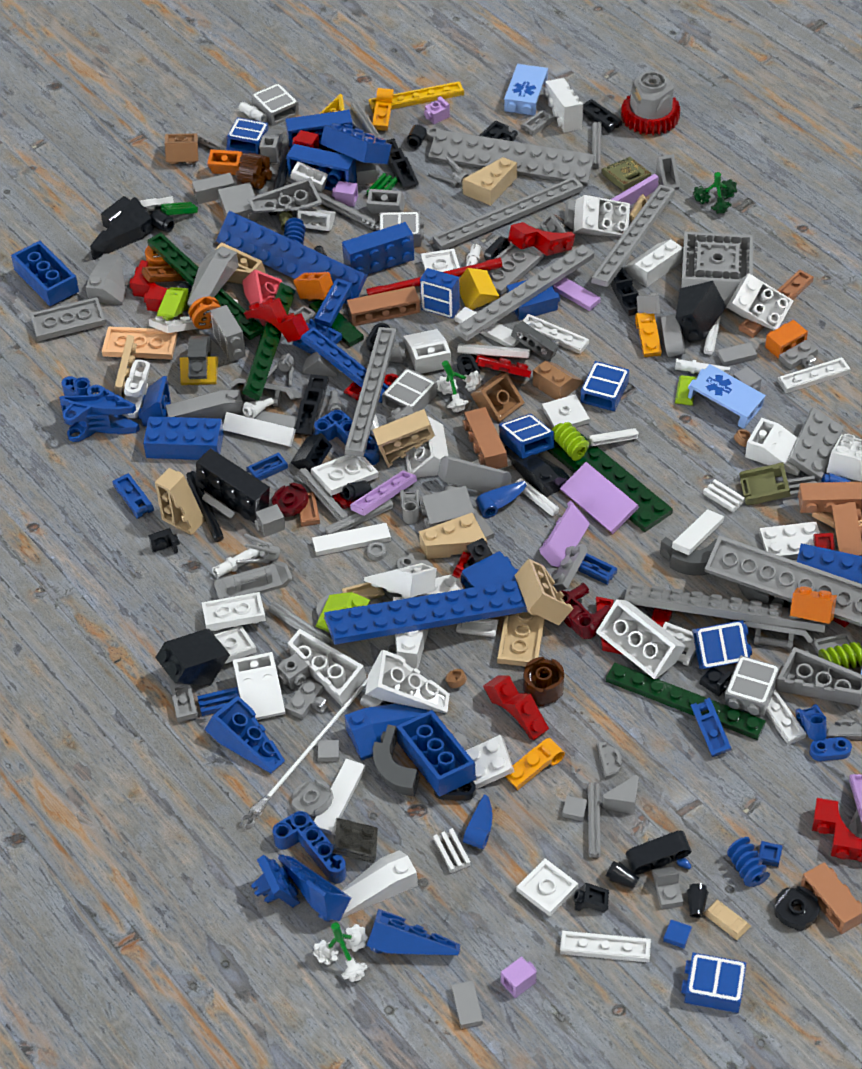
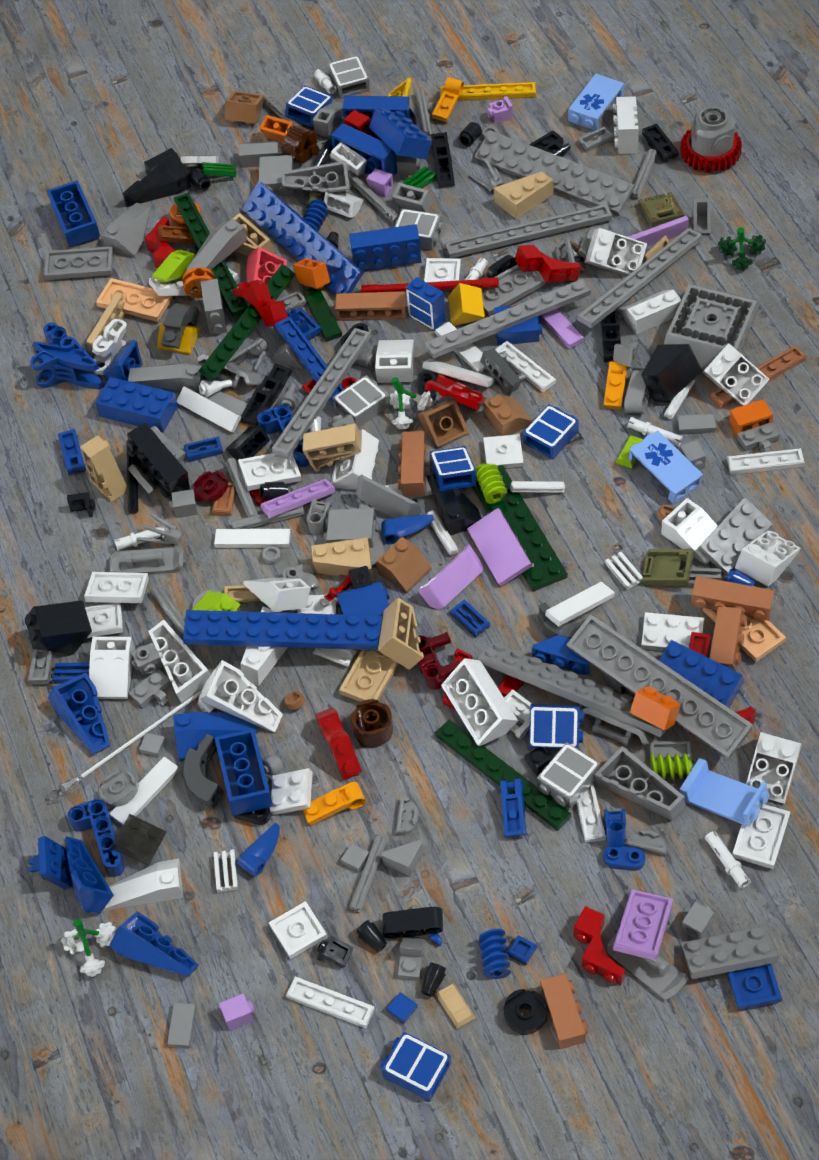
camera: 20 degrees right, 5 degrees up
(333, 302) = (322, 294): blue plate -> none
(512, 533) = (403, 565): none -> medium nougat slope
(569, 566) = (442, 612): light grey plate -> none
(696, 579) = (556, 652): none -> blue slope

